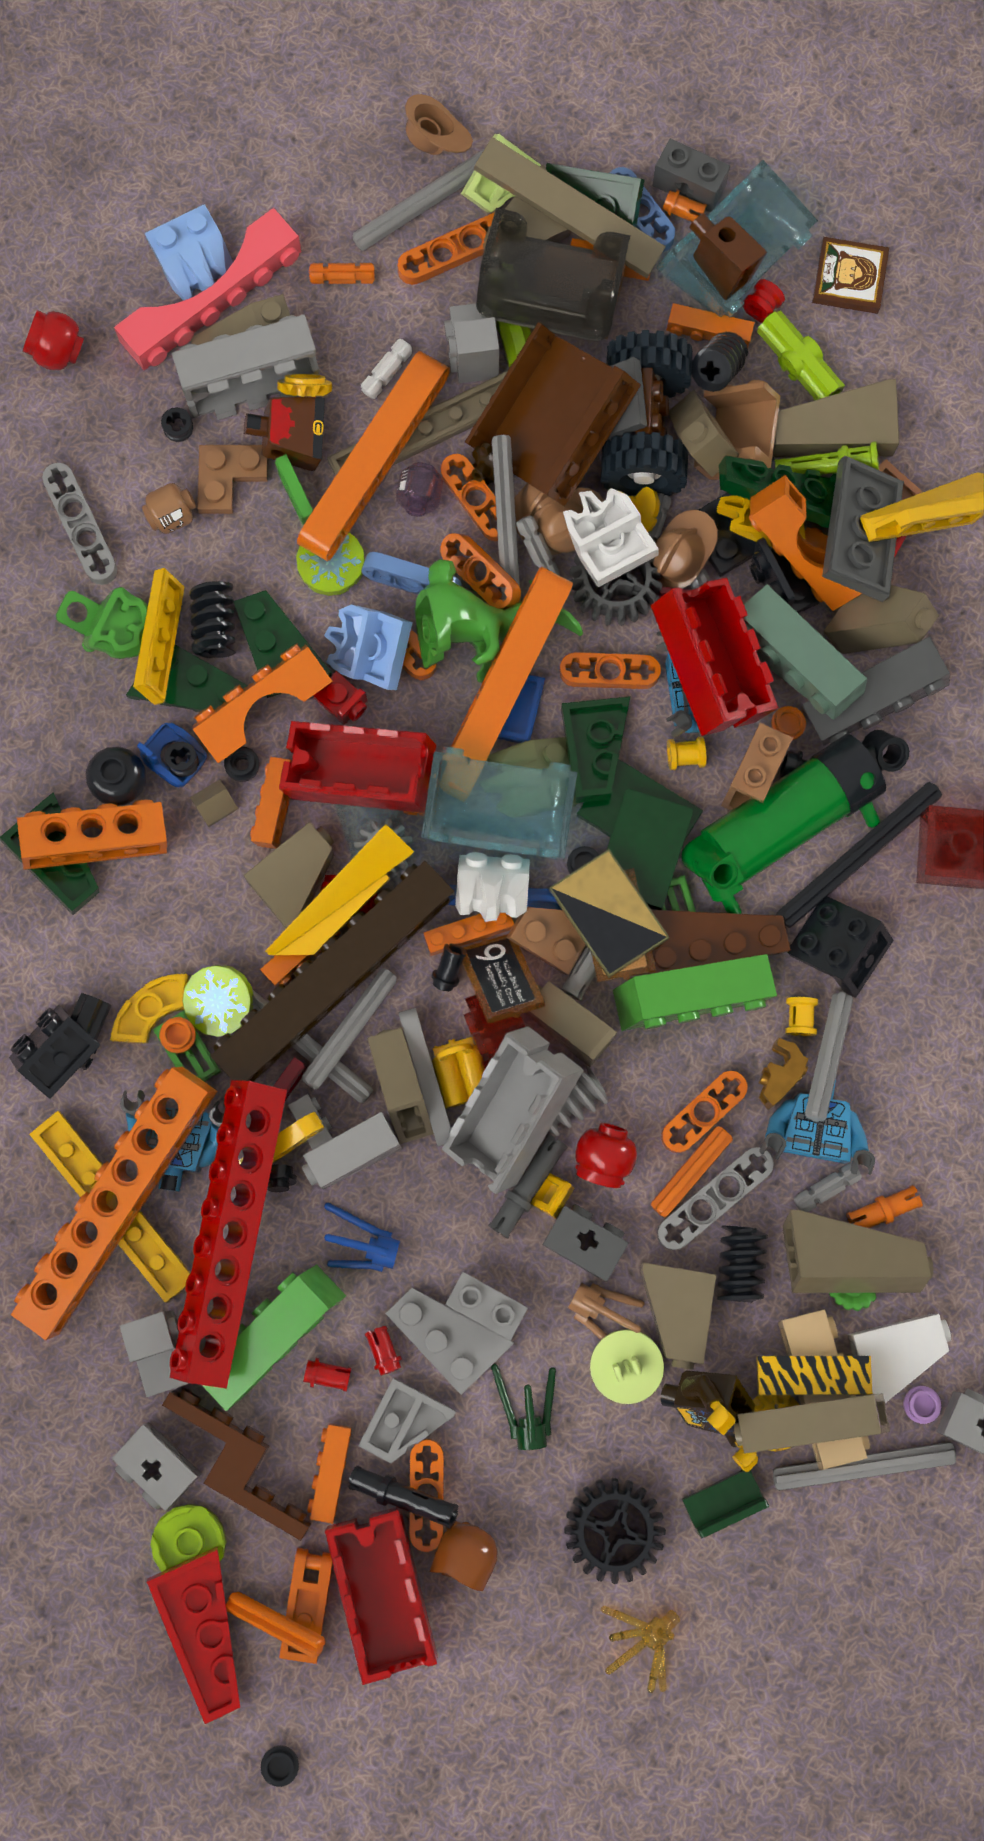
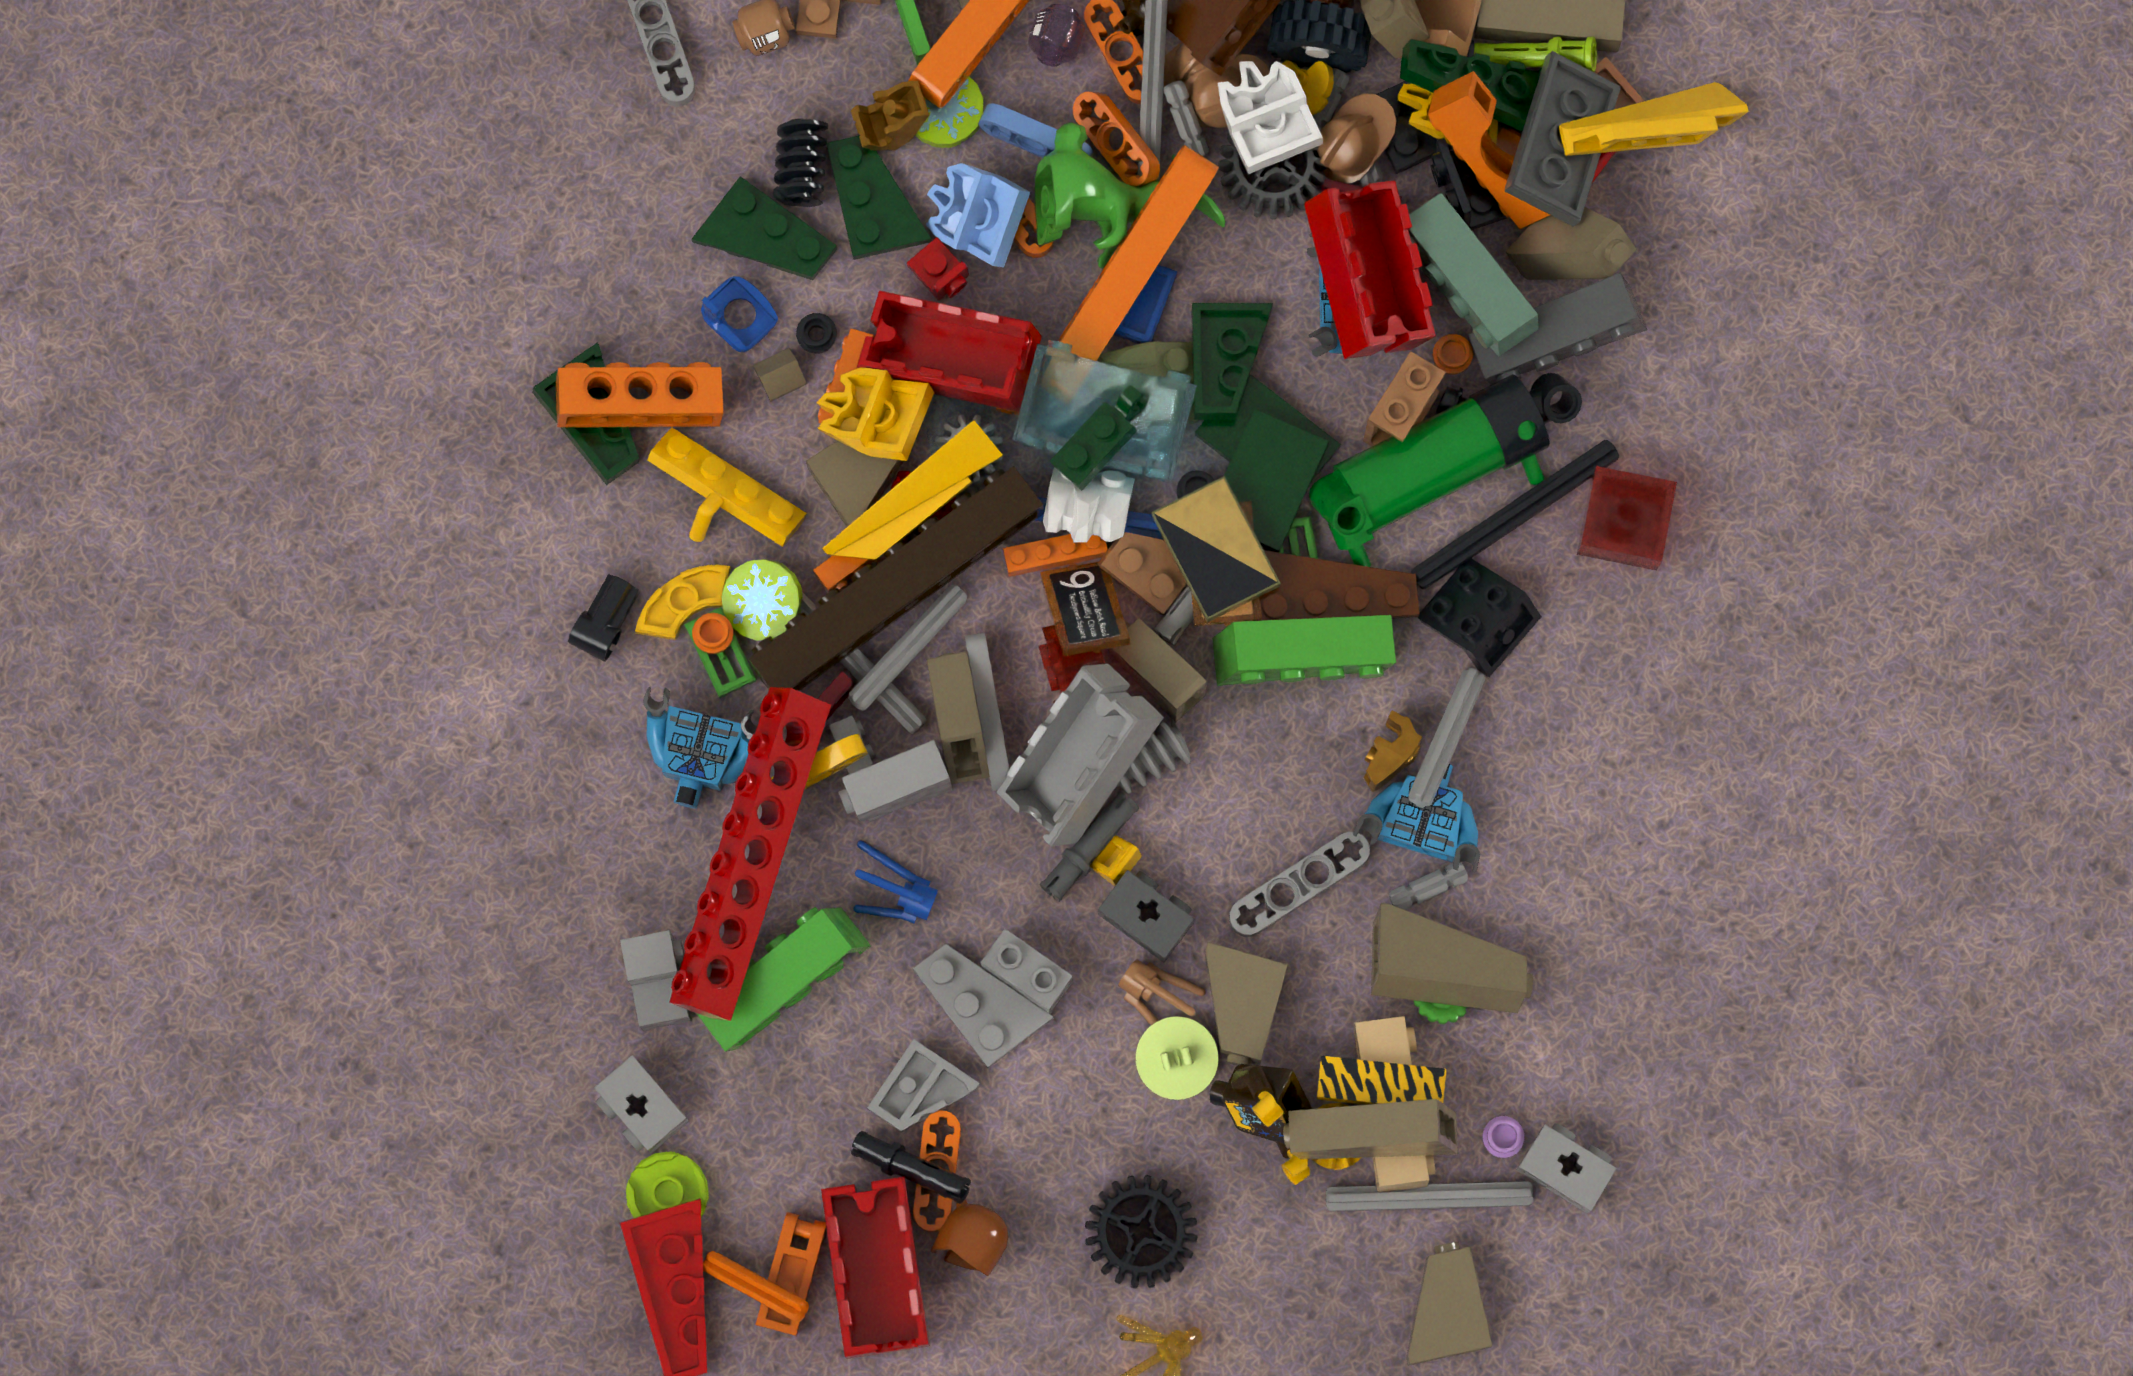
camera: 10 degrees right, 0 degrees up
(33, 1304) = (520, 909): orange brick -> none
(52, 1051) = (572, 633): black bracket -> none
(110, 627) = (687, 158): bright green piece -> none
(115, 776) = (672, 331): black piece -> none
(141, 1241) = (619, 816): yellow plate -> none
(159, 636) = (738, 176): yellow tile -> none
(176, 906) = (724, 488): none -> yellow plate
(181, 749) = (748, 309): black bush -> none
(238, 1463) = (731, 1110): reddish brown bracket -> none
(281, 1178) = (812, 806): black plate -> none
(287, 574) = (892, 118): none -> pearl gold hand
(296, 675) = (801, 288): orange arch -> none
(300, 827) = (876, 413): none -> yellow plate
(327, 1375) = (840, 1028): red pin -> none
(332, 1466) = (833, 1135): orange piece -> none
(383, 1351) = (906, 1009): red pin -> none
(446, 975) = (1024, 598): black pin -> none
(457, 1070) = (1022, 707): yellow piece -> none
(496, 828) = (1099, 438): none -> dark green plate
(530, 1431) = (1061, 1114): dark green plant -> none
(605, 1155) = (1180, 820): red piece -> none
(618, 659) = (1240, 282): orange beam -> none
(686, 753) = (1329, 376): yellow bush -> none
(691, 1171) = (1276, 851): orange axle -> none
(724, 1503) = (1267, 1216): dark green panel -> none
(730, 1100) = (1280, 812): orange beam -> none
(742, 1264) = (1319, 958): black piece -> none
(801, 1016) = (1423, 690): yellow bush -> none
(885, 1208) = (1492, 916): orange pin -> none
(895, 1569) = (1448, 1308): none -> dark tan slope
(901, 1351) = (1485, 1073): white slope -> none

